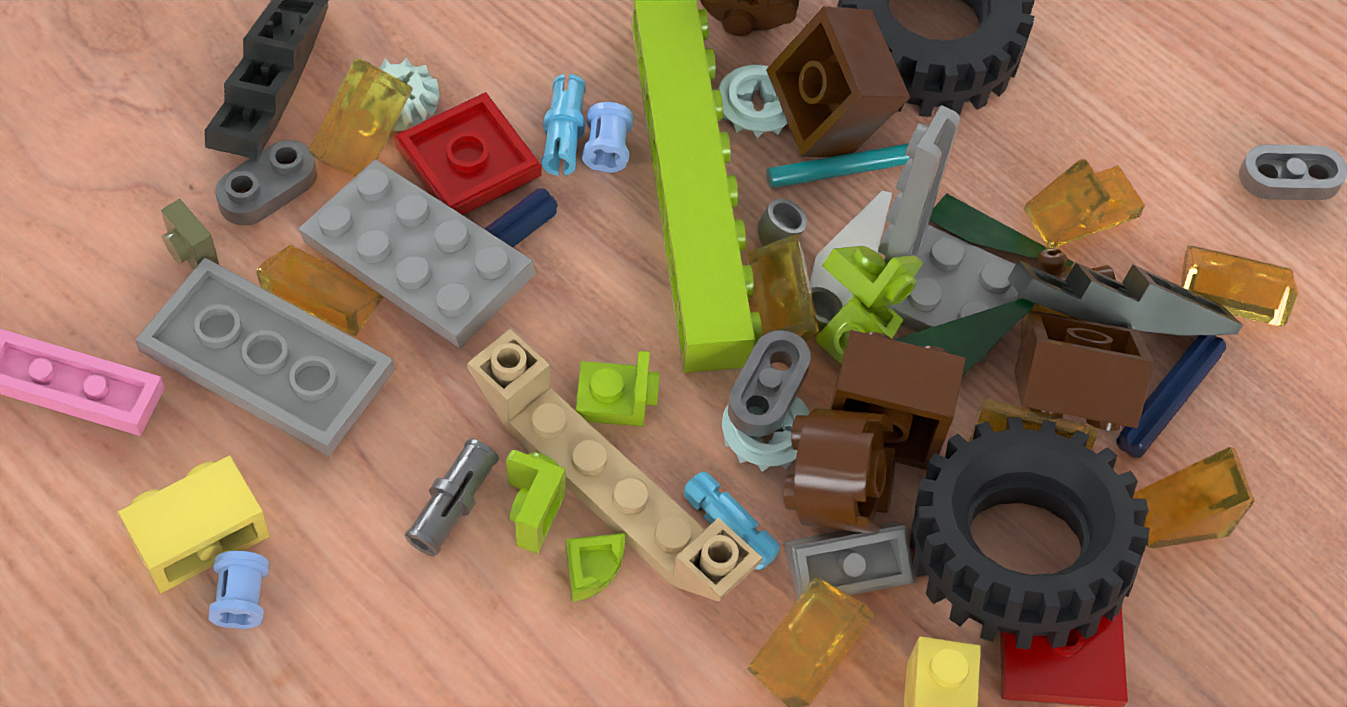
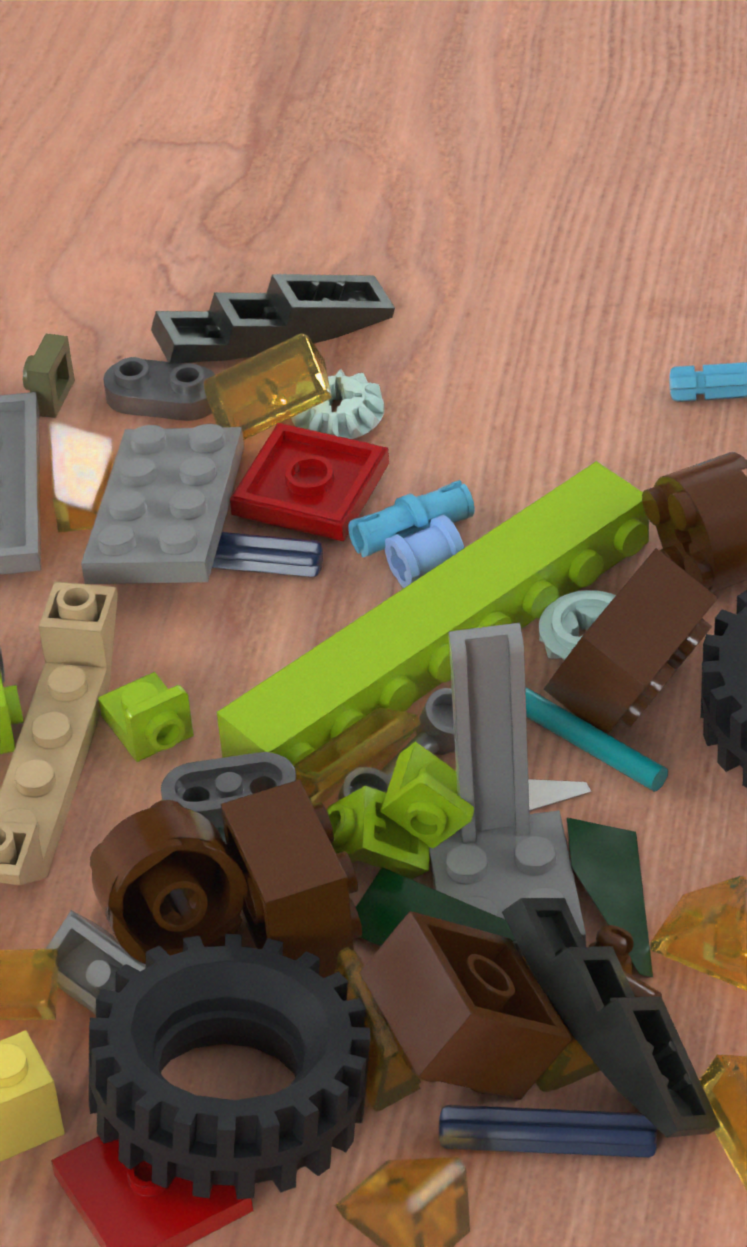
camera: 65 degrees right, 15 degrees down
(704, 494) = (73, 868): medium azure axle -> none

